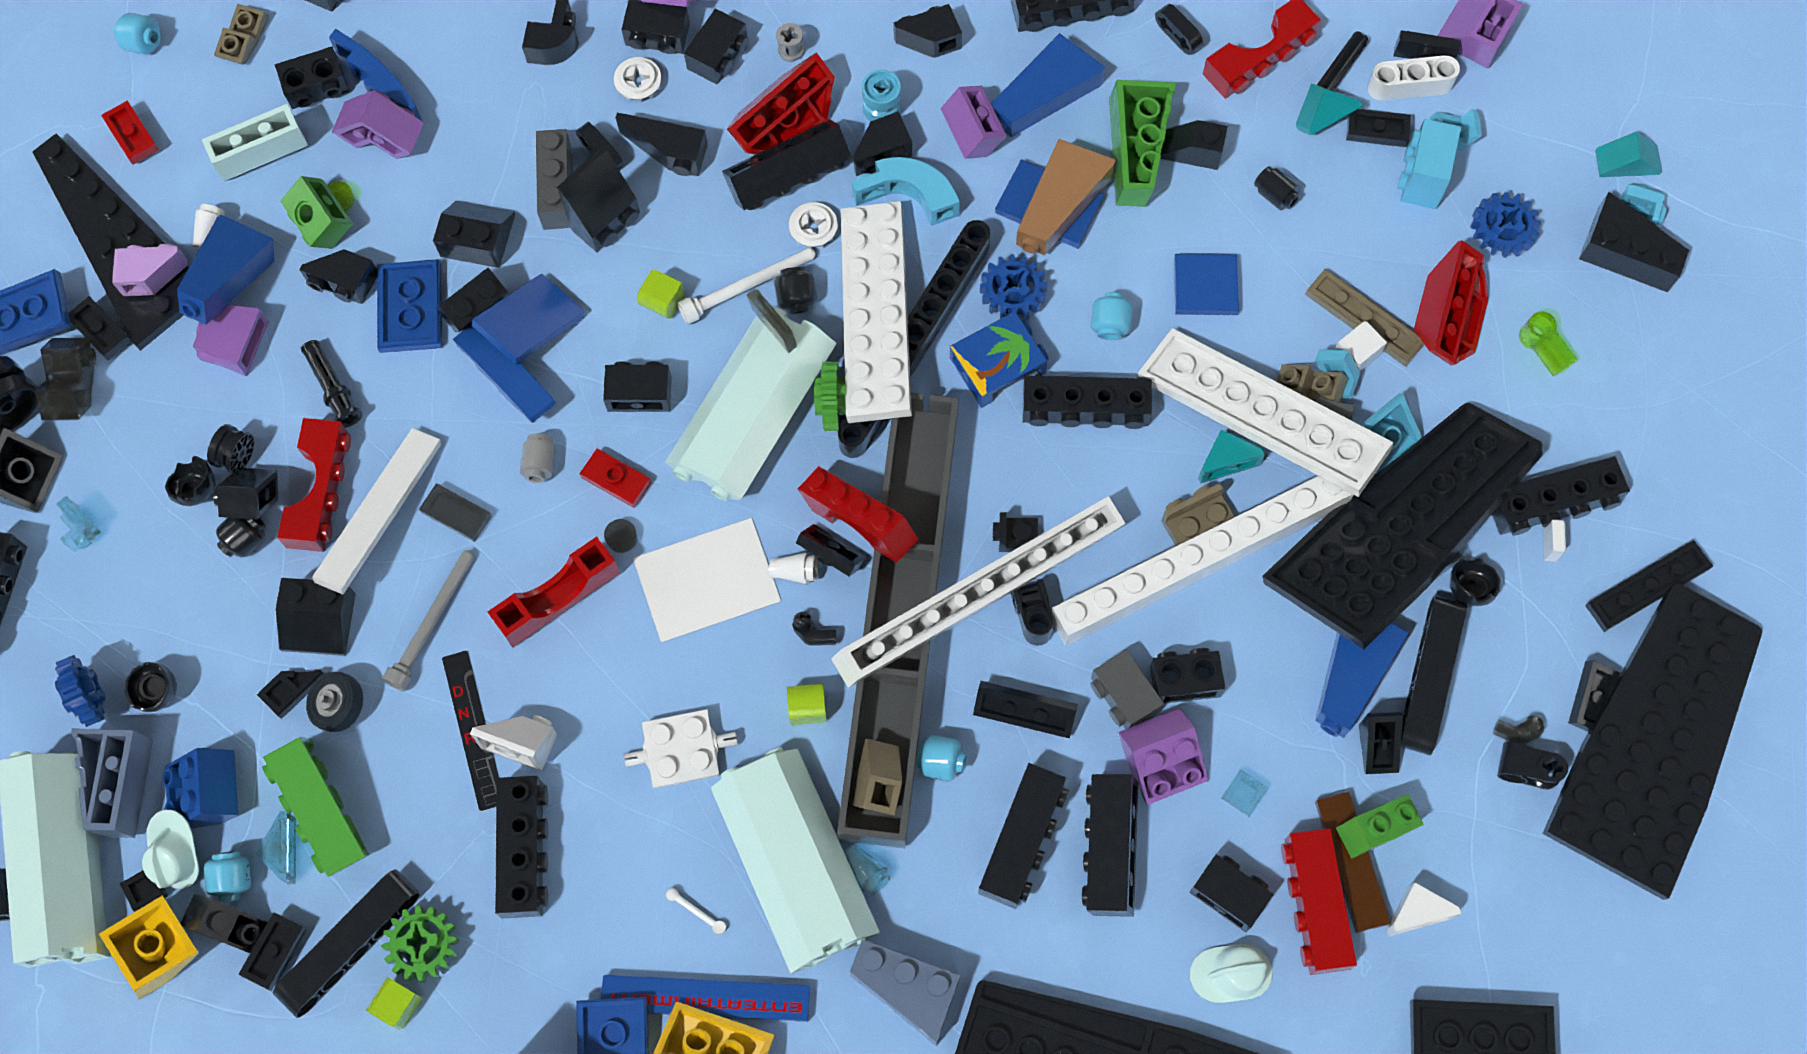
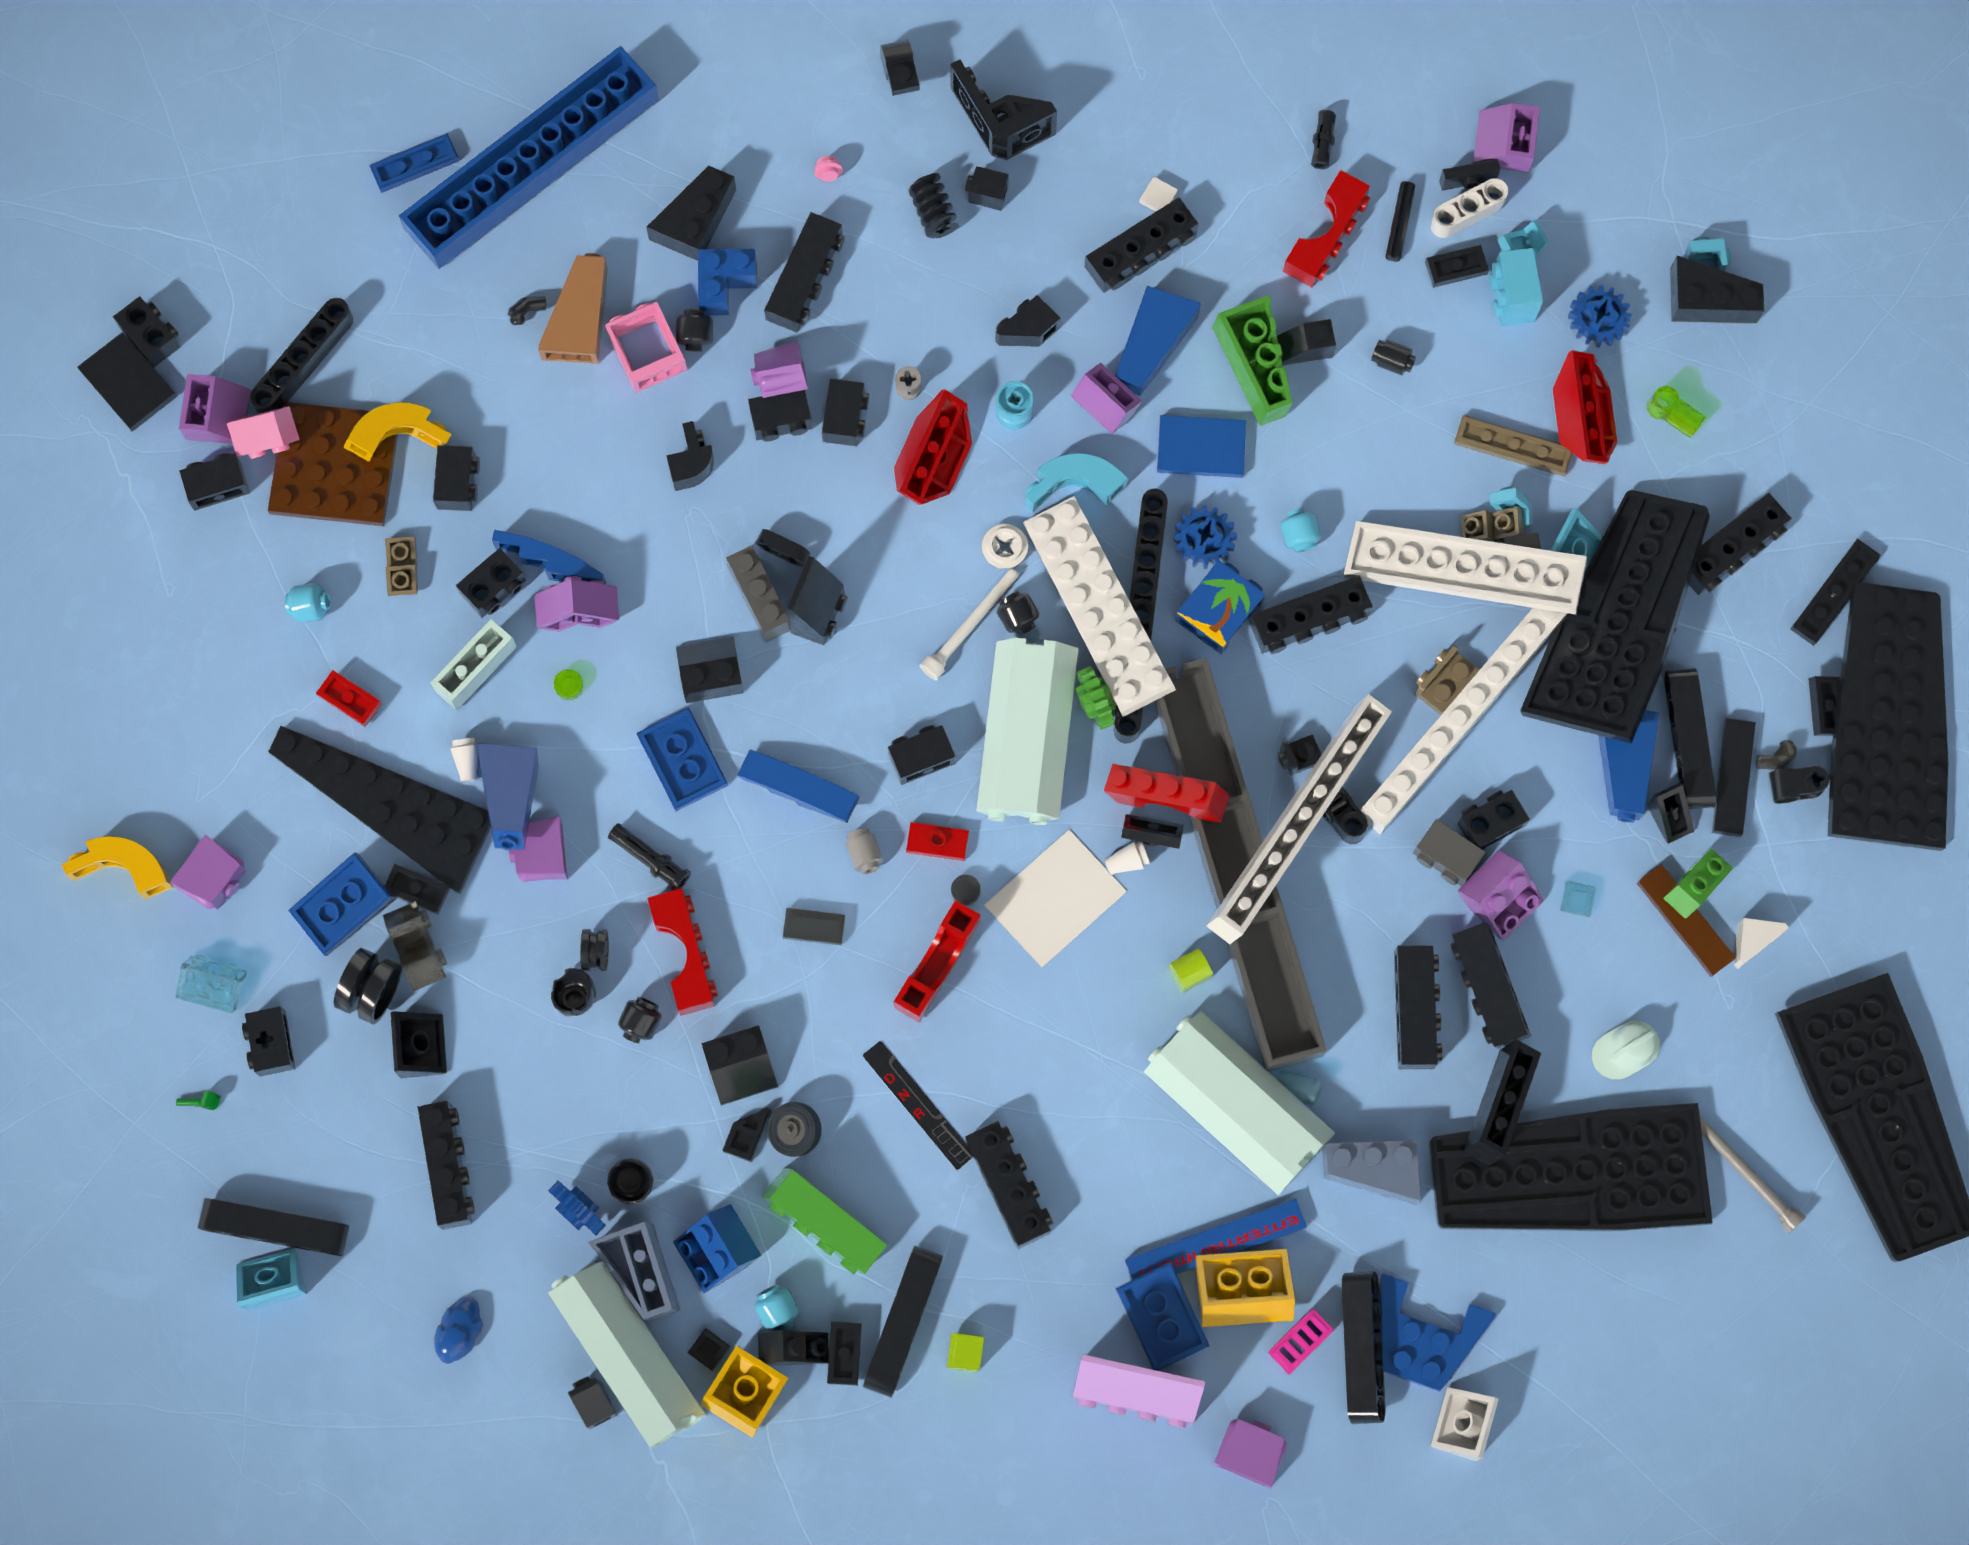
camera: 25 degrees left, 5 degrees up
(82, 527) = (487, 1064): clear light blue bracket -> none
(146, 269) = (438, 821): lavender slope -> none
(170, 851) = (720, 1306): light aqua piece -> none
(247, 493) = (632, 983): black brick -> none
(279, 848) = (806, 1271): clear light blue slope -> none
(316, 212) = (577, 708): bright green brick -> none
(343, 274) = (612, 754): black slope -> none
(376, 511) = (752, 952): white tile -> none
(399, 674) = (835, 1084): light grey piece -> none
(421, 958) = (951, 1303): bright green gear -> none
(471, 299) = (740, 733): black brick -> none
(518, 739) = (968, 1097): white slope -> none
(528, 318) = (798, 730): blue tile -> none
(625, 76) = (789, 457): white gear -> none
(660, 294) = (902, 662): lime piece -> none
(672, 145) = (844, 521): black slope -> none
(680, 749) = (1102, 1050): white plate -> none
(718, 926) = (1199, 1183): white hinge -> none
(772, 320) = (1021, 652): clear smoke tile -> none
(787, 165) = (960, 501): black brick -> none
(809, 633) = (1165, 909): black arm -> none
(878, 778) = (1281, 1008): dark tan slope -> none
(882, 139) = (1035, 446): black slope -> none
(941, 758) = (1322, 970): medium azure head -> none
(1025, 709) = (1372, 902): black plate -> none
(1063, 193) = (1213, 429): medium nougat slope -> none
(1069, 973) = (1502, 1102): none -> black brick
(1179, 29) = (1246, 238): black beam -> none
(1206, 284) = (1367, 468): blue tile -> none
(1229, 457) = (1449, 616): teal slope -> none
(1232, 892) = (1601, 984): black brick -> none
(1319, 902) = (1673, 964): red brick -> none
(1324, 108) = (1404, 267): teal slope -> none
(1363, 345) = (1522, 473): white panel -> none
(1463, 733) = (1733, 777): none -> black tile
(1474, 582) = (1694, 646): black hair -> none
(1554, 540) = (1745, 584): white tile -> none
(1628, 157) = (1679, 212): teal slope -> none

